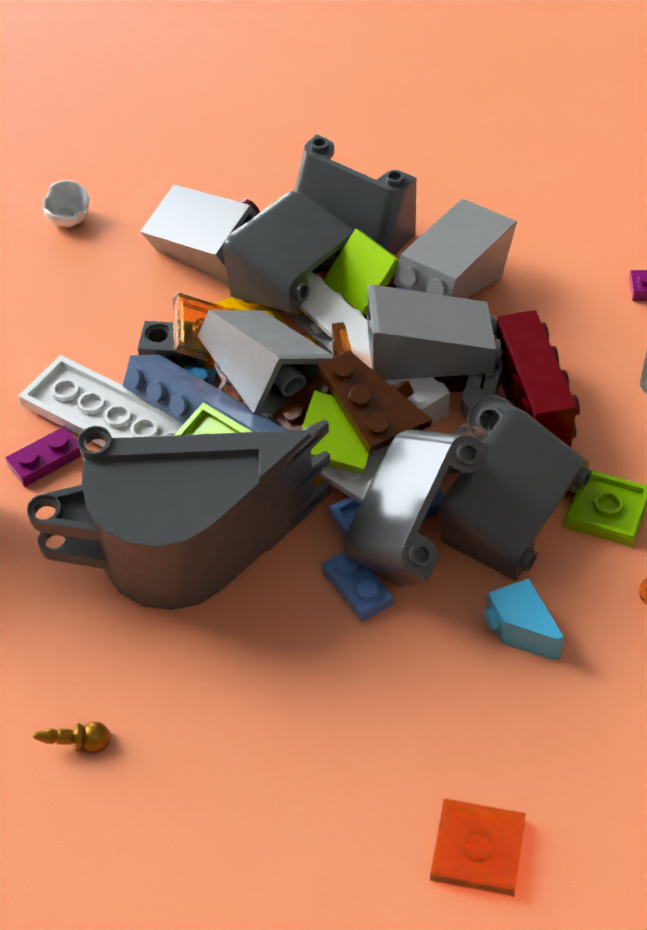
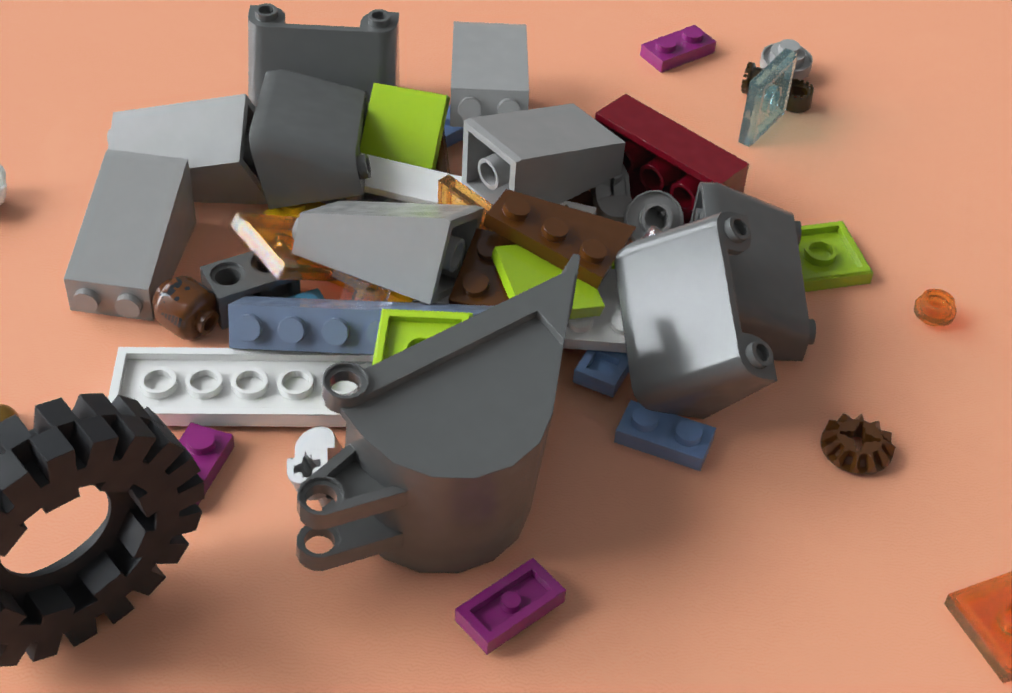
camera: 40 degrees left, 5 degrees down
(117, 344) = (185, 307): none -> reddish brown head
(126, 280) = (131, 234): none -> light grey slope
(147, 642) = (510, 605): none -> magenta plate
(489, 675) = (840, 446): none -> reddish brown gear
(523, 620) = (859, 386): medium azure slope -> none

